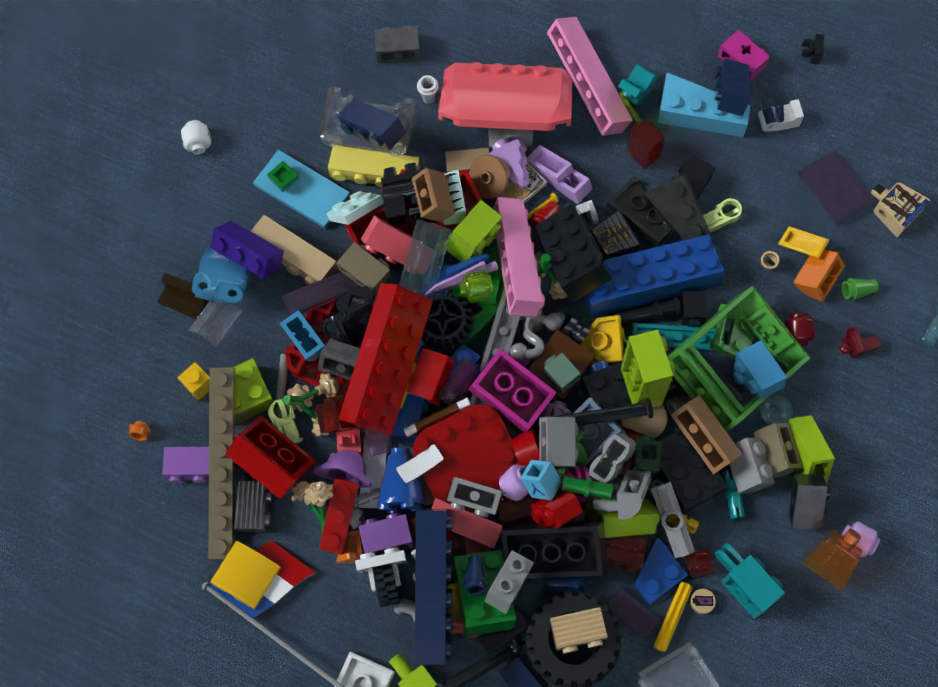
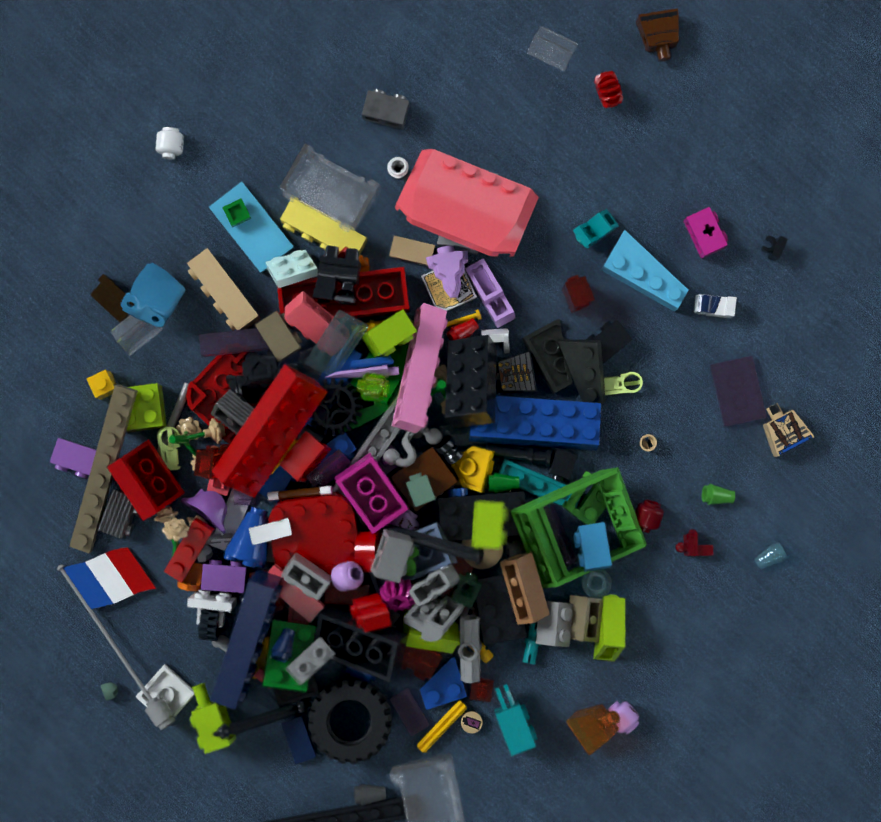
camera: 15 degrees right, 15 degrees up
(139, 431) = (41, 412): orange plate -> none
(245, 574) = (95, 572): yellow slope -> none
(247, 249) = (181, 278): dark purple brick -> none
(303, 336) = (207, 379): dark azure brick -> none
(371, 124) = (330, 195): dark blue brick -> none
(433, 195) = (360, 292): medium nougat brick -> none
(456, 195) = (379, 294): light aqua brick -> none
(497, 173) = (424, 277): medium nougat plate -> none
(541, 480) = (365, 585): medium azure brick -> none
(578, 629) = (353, 720): tan brick -> none
(587, 487) = (402, 604): green pin -> none
(589, 76) = (553, 205): bright pink brick -> none
(632, 111) = (578, 257): clear neon green piece -> none
(732, 87) = (677, 268): dark blue brick -> none
(803, 242) = (685, 436): yellow tile -> none
(808, 501) = (590, 672): black brick -> none
(819, 274) = (687, 469): orange brick -> none

